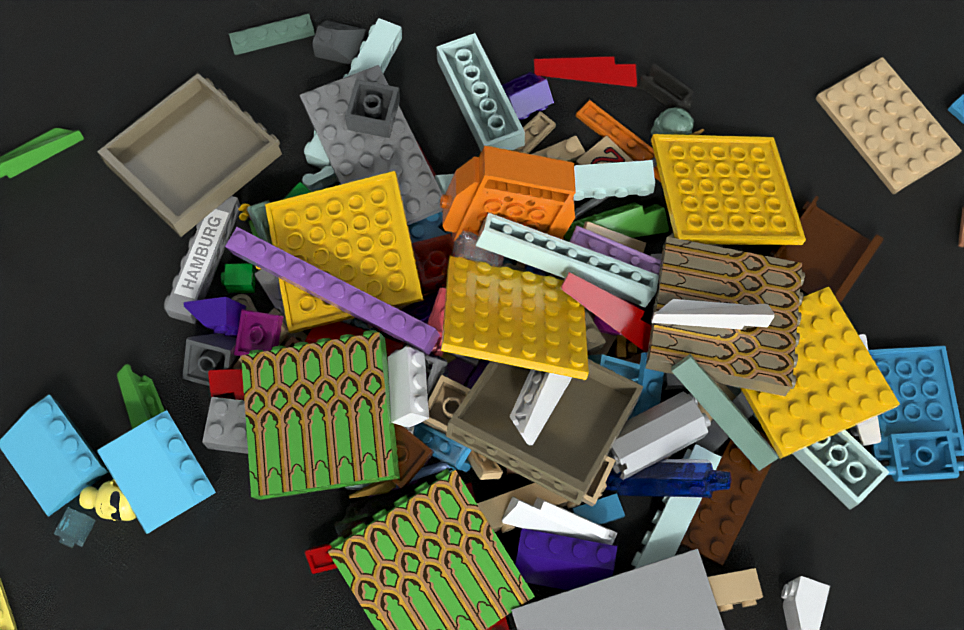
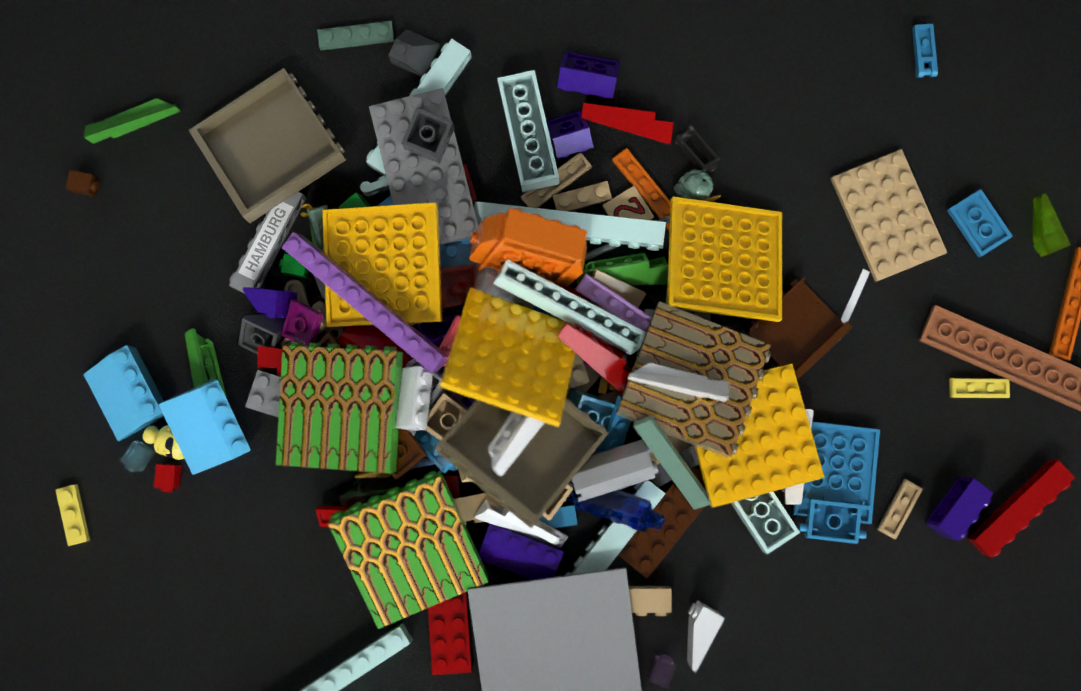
camera: 15 degrees right, 15 degrees up
(115, 546) = (167, 477): none -> red brick
(533, 35) = (588, 75): none -> dark purple slope
(875, 213) = (855, 295): none -> white sticker

